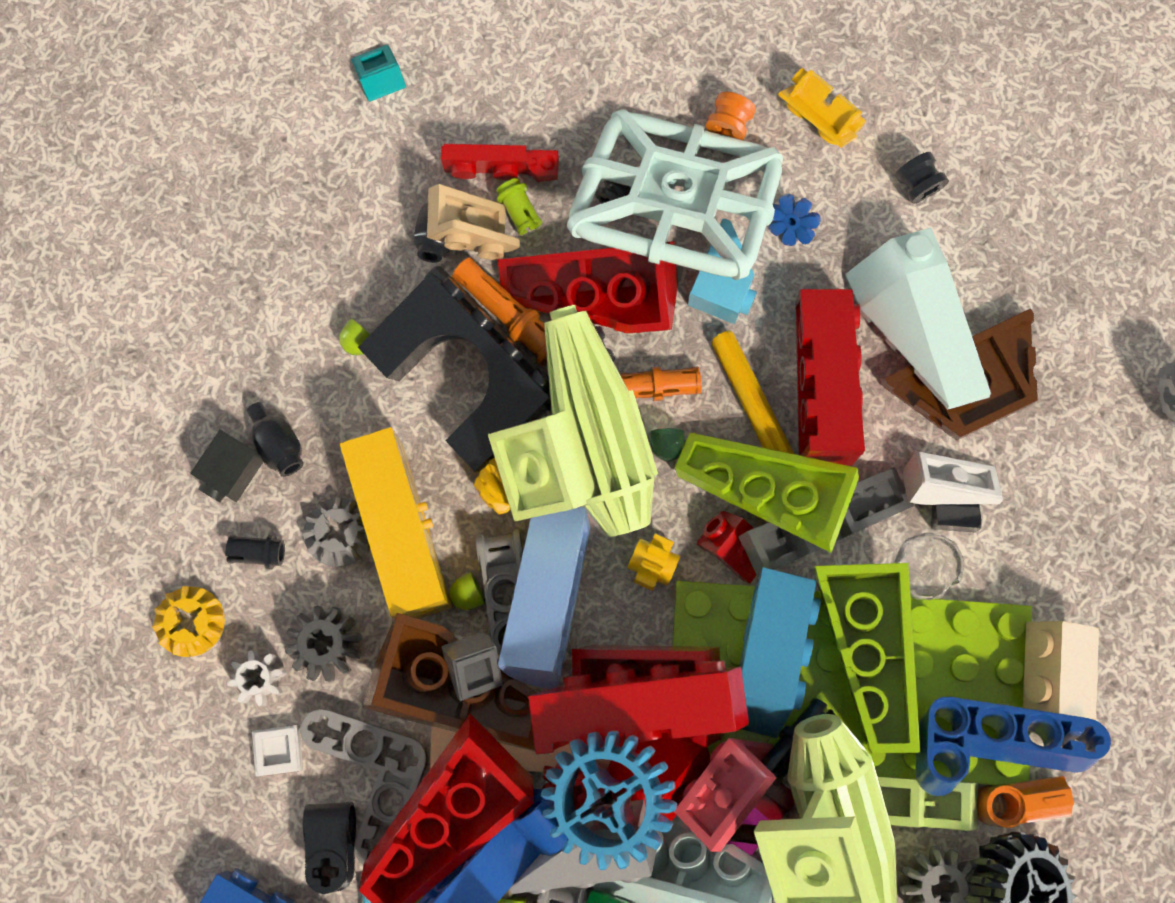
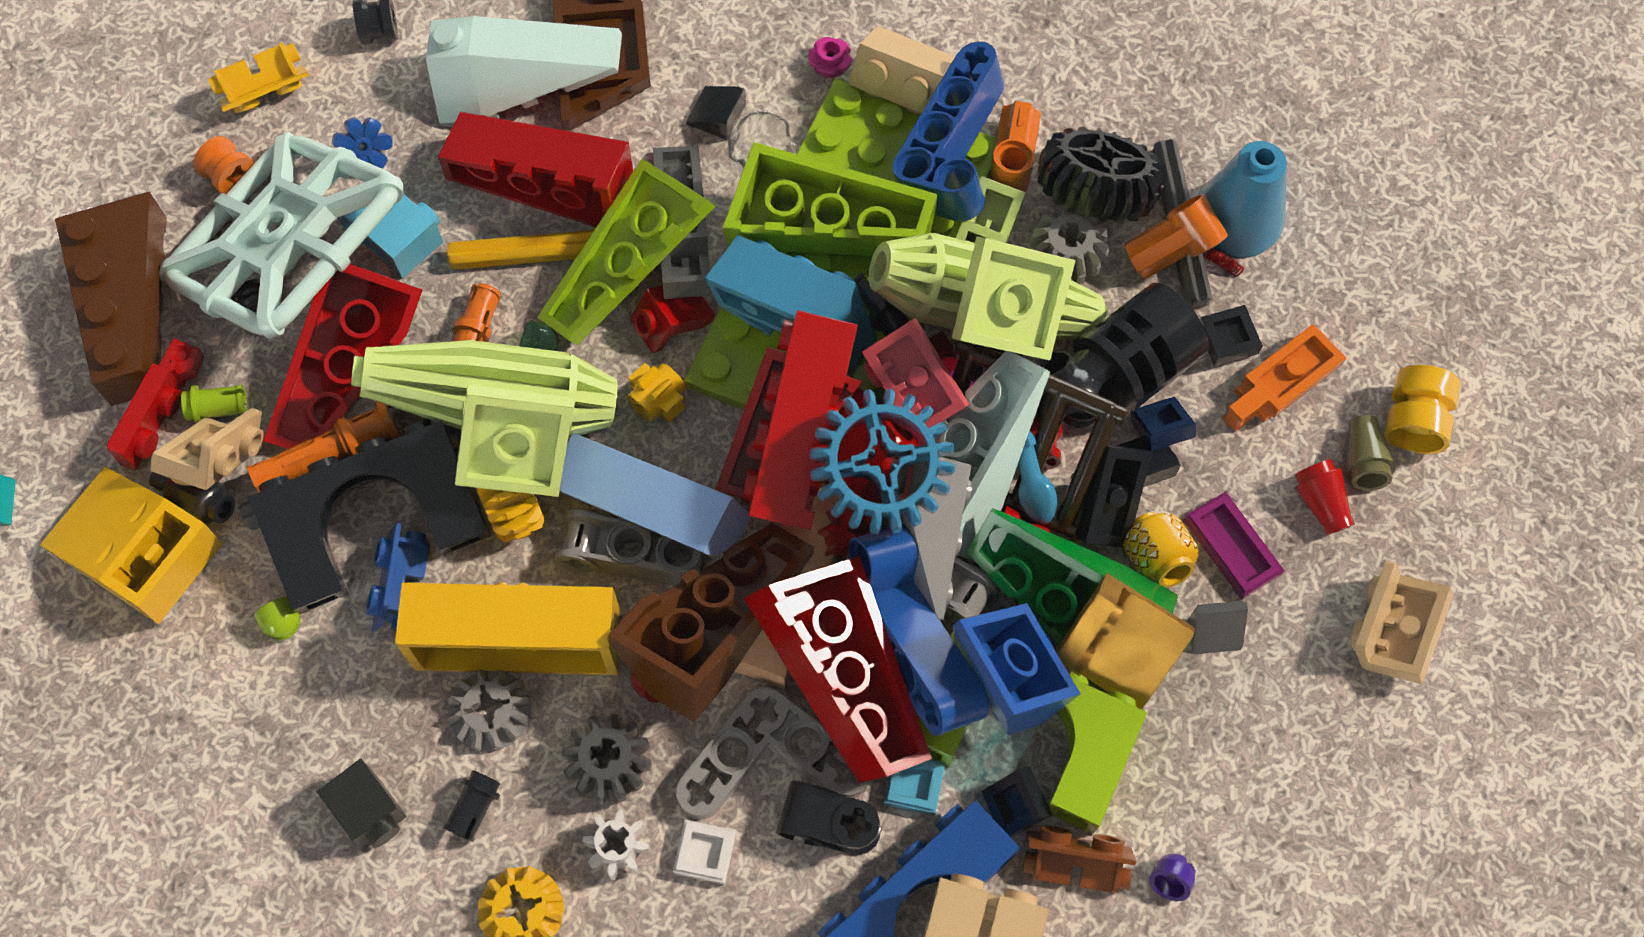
camera: 75 degrees left, 10 degrees down
(275, 441) = (357, 738): black plant -> none
(376, 198) = (133, 543): none -> yellow slope
(434, 409) = (398, 560): none -> blue hinge
(466, 593) = (621, 584): lime hinge -> none
(473, 665) = (694, 581): dark grey slope -> none
(582, 87) = (116, 289): none -> reddish brown wedge
(947, 480) = (686, 105): white slope -> none
(1042, 593) = (830, 66): none -> dark pink plate

